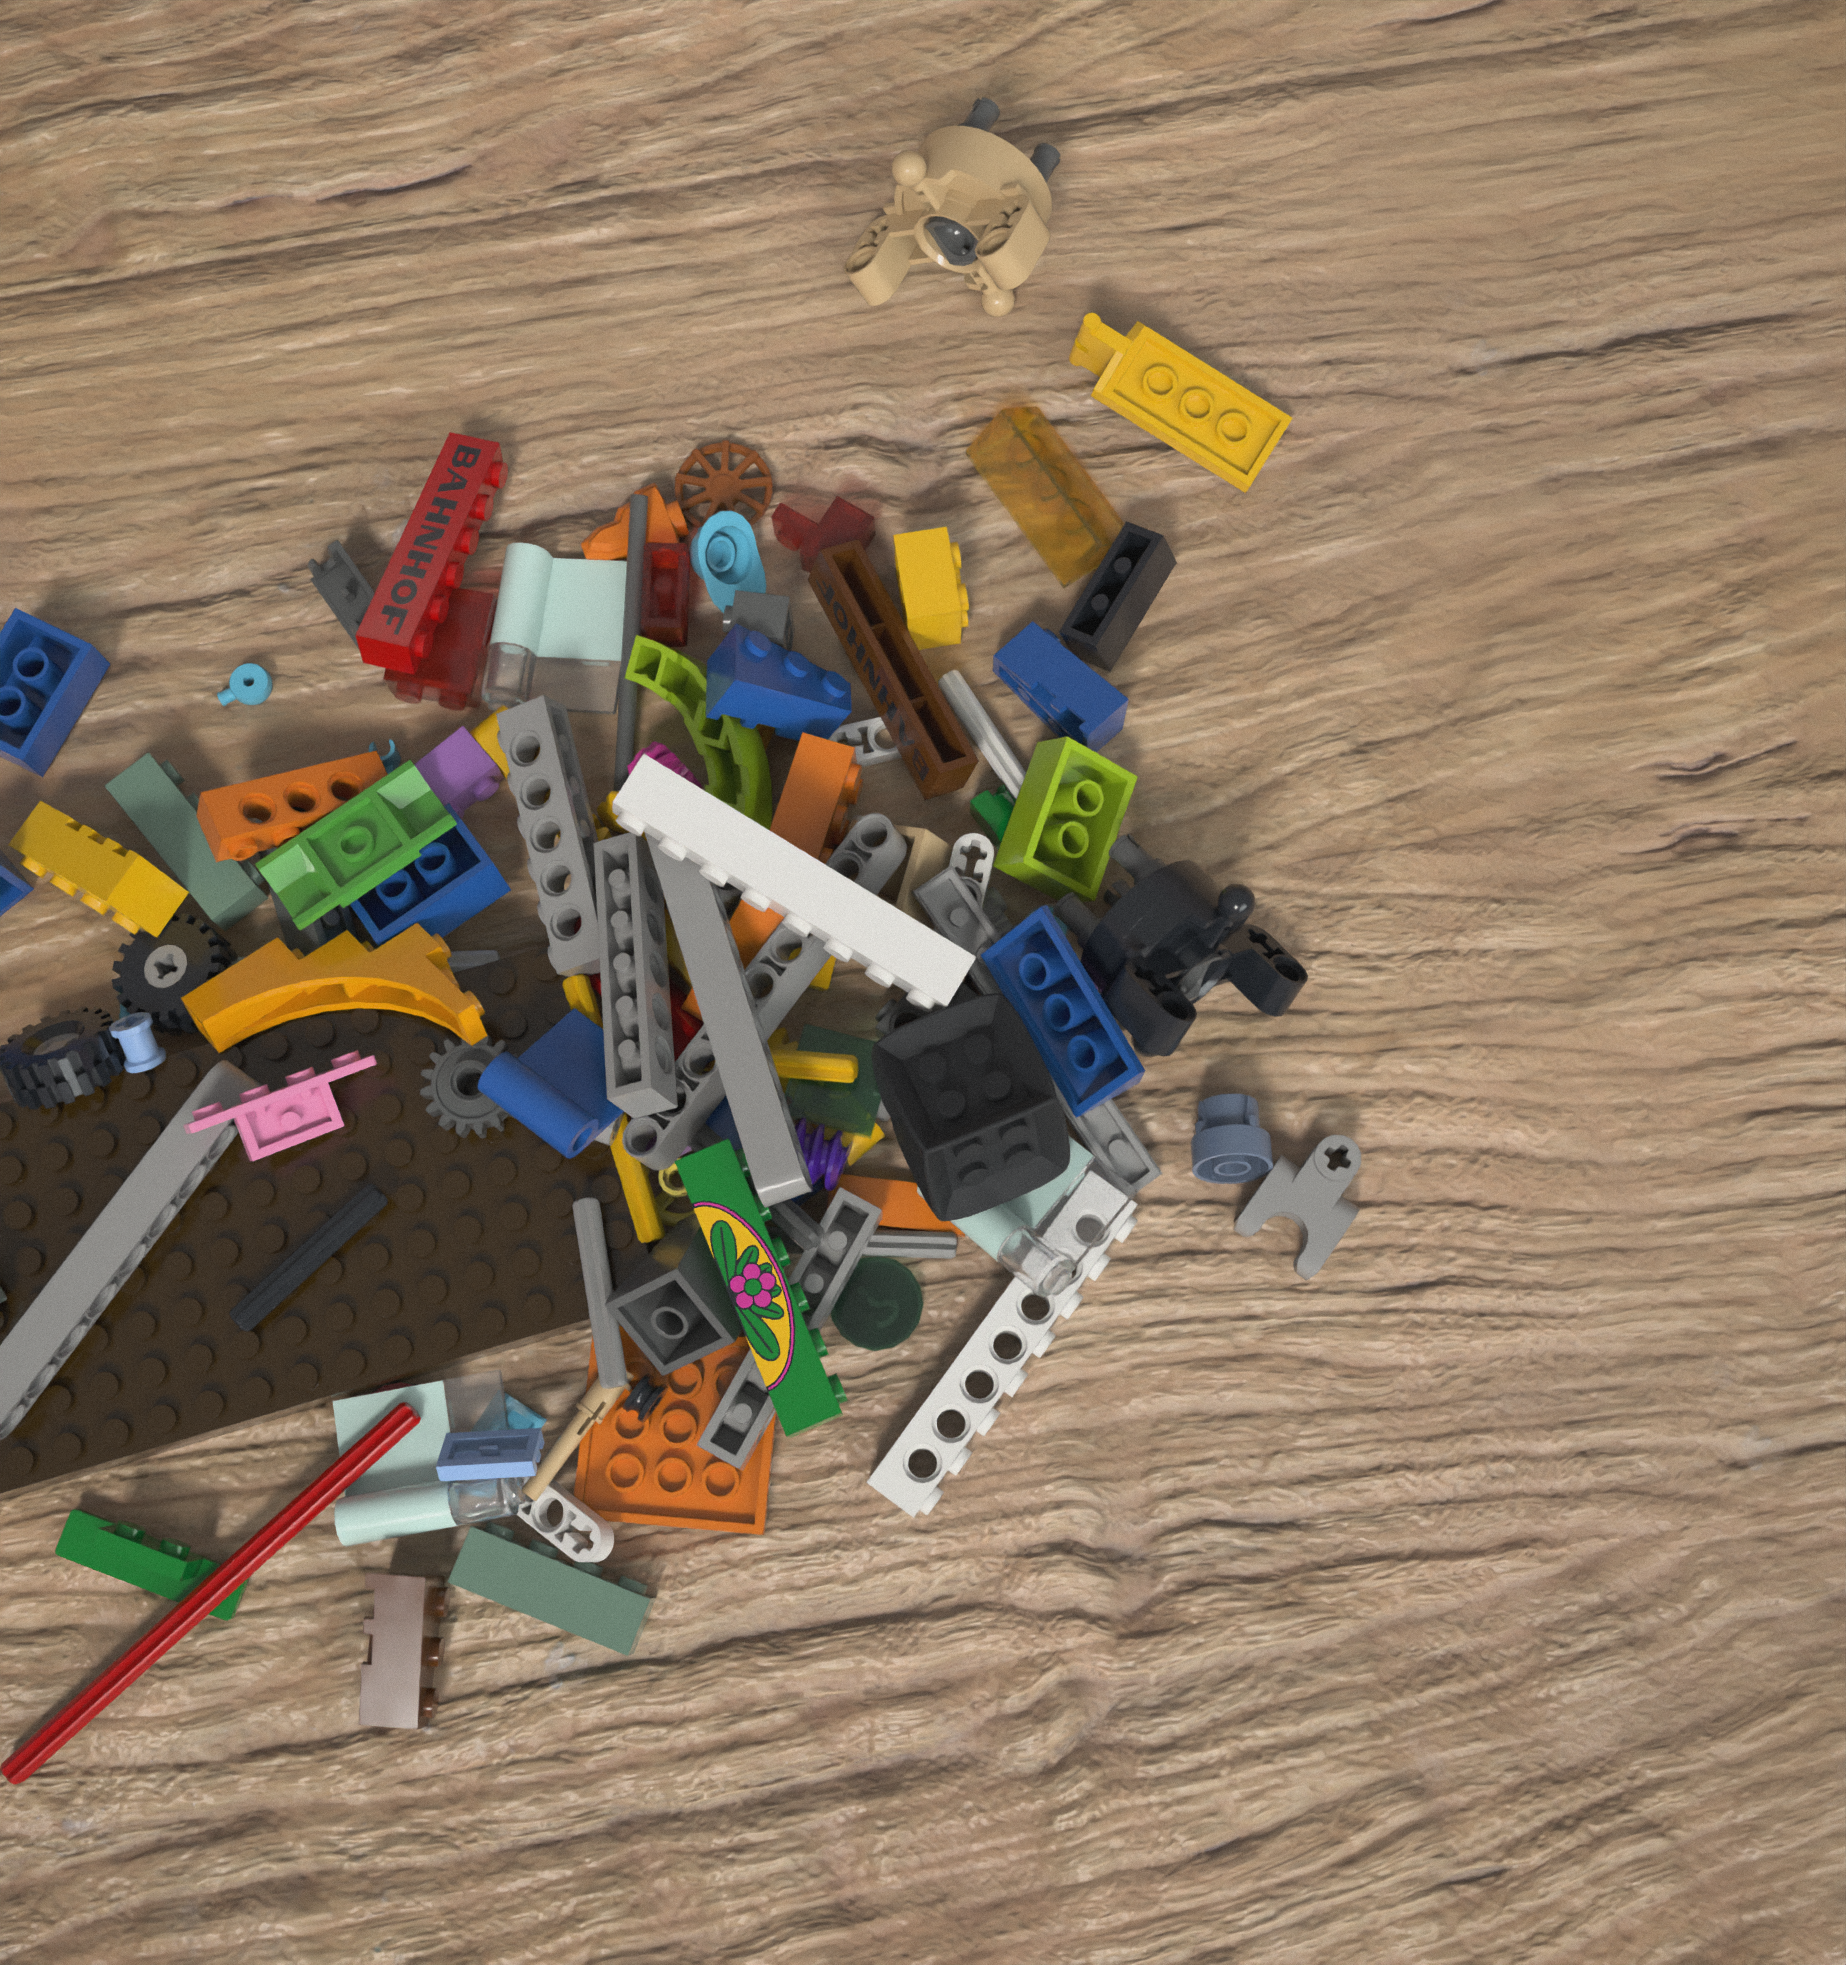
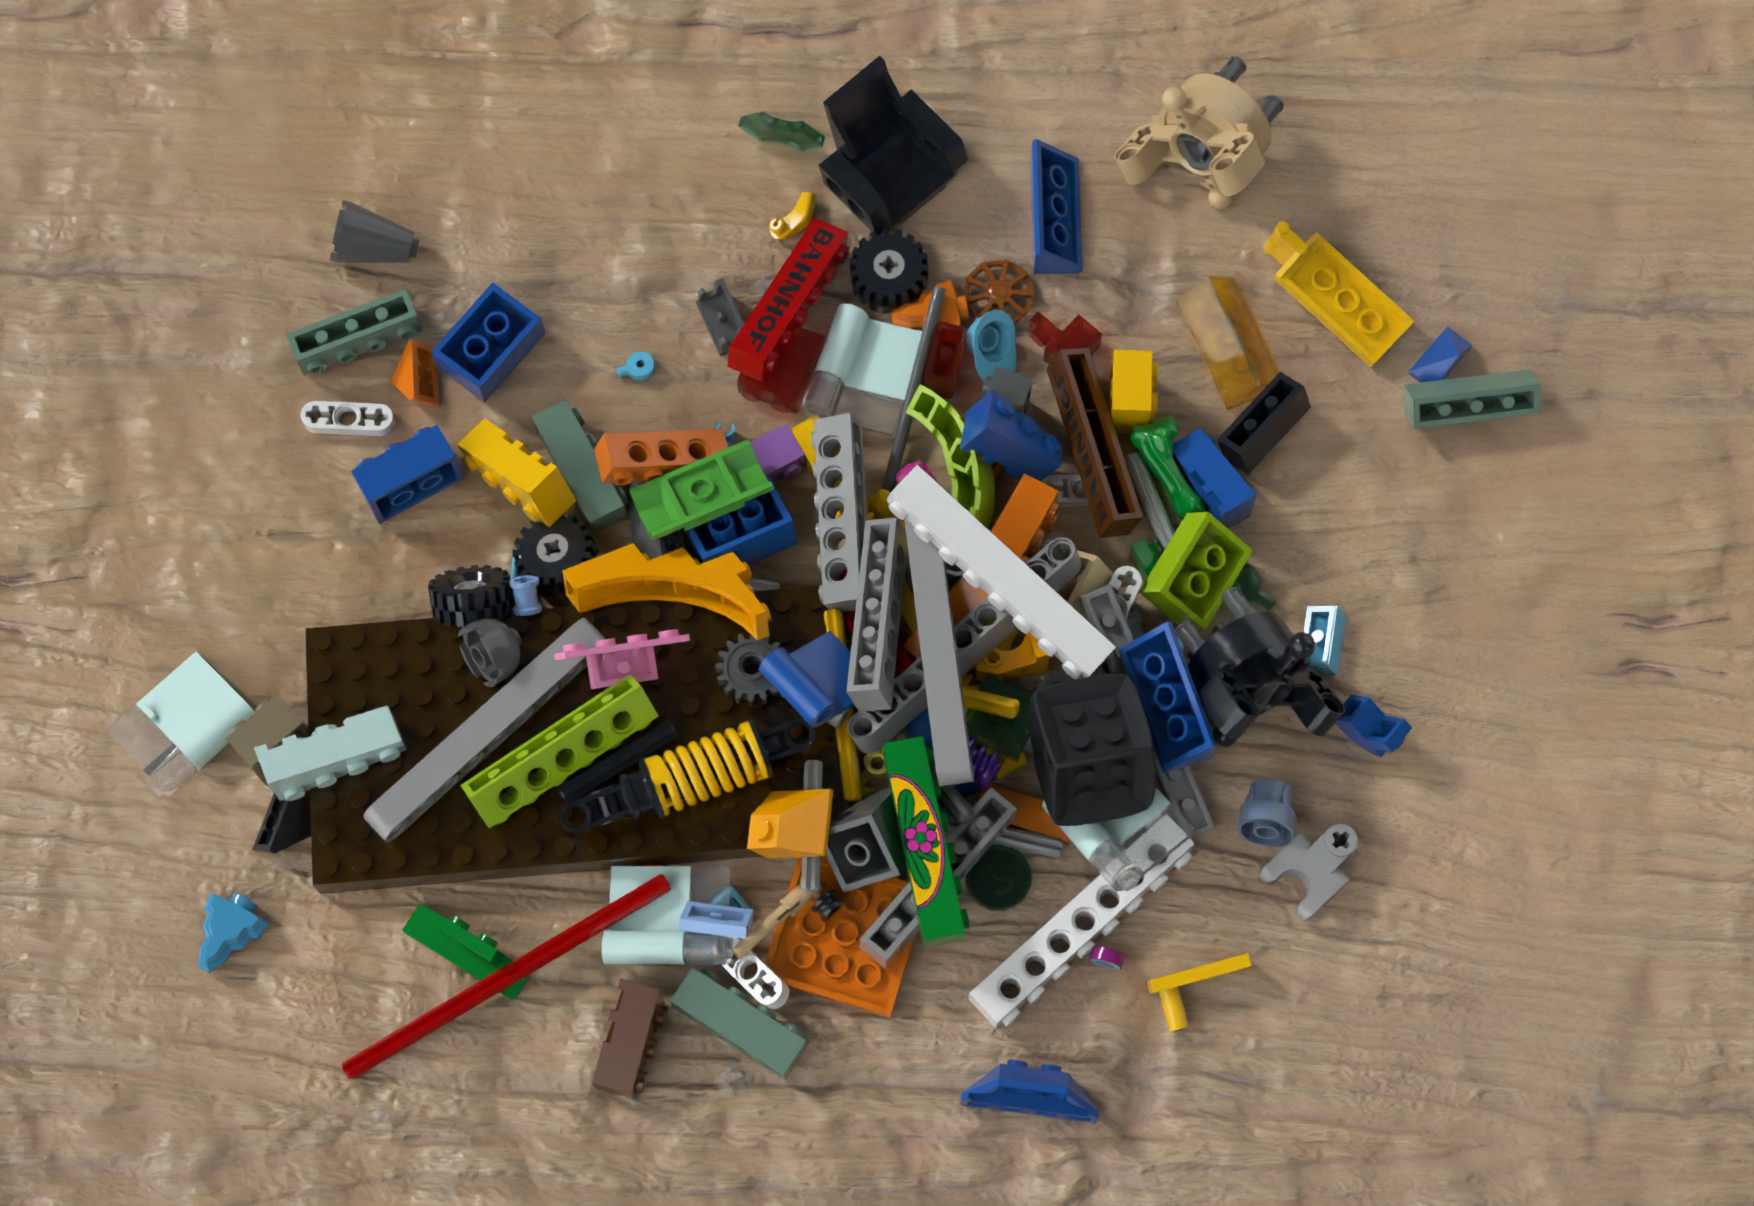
camera: 10 degrees right, 5 degrees down
(98, 1132) = (490, 650): none -> dark grey cylinder
(192, 1268) = (543, 748): none -> lime brick
(369, 321) = (768, 128): none -> clear green tile
(411, 1260) = (691, 772): none -> piece
(428, 441) = (796, 220): none -> yellow arm
(533, 317) = (888, 150): none -> black piece
(568, 1298) = (792, 824): none -> light orange slope
(576, 505) = (890, 285): none -> black wheel
(779, 360) = (1055, 210): none -> blue slope
(837, 1001) = (1013, 663): none -> light orange tile
(978, 663) = (1155, 448): none -> green hair
(979, 1603) = (1031, 1092): none -> blue wedge
(1048, 1388) = (1107, 958): none -> magenta tile
(1140, 1407) = (1169, 991): none -> yellow piece
(1143, 826) = (1251, 587): none -> clear green rock
(1256, 863) = (1327, 628): none -> medium azure slope
(1336, 463) = (1440, 357): none -> blue slope
(1347, 990) = (1371, 727): none -> blue brick
(1392, 508) = (1472, 398): none -> sand green brick

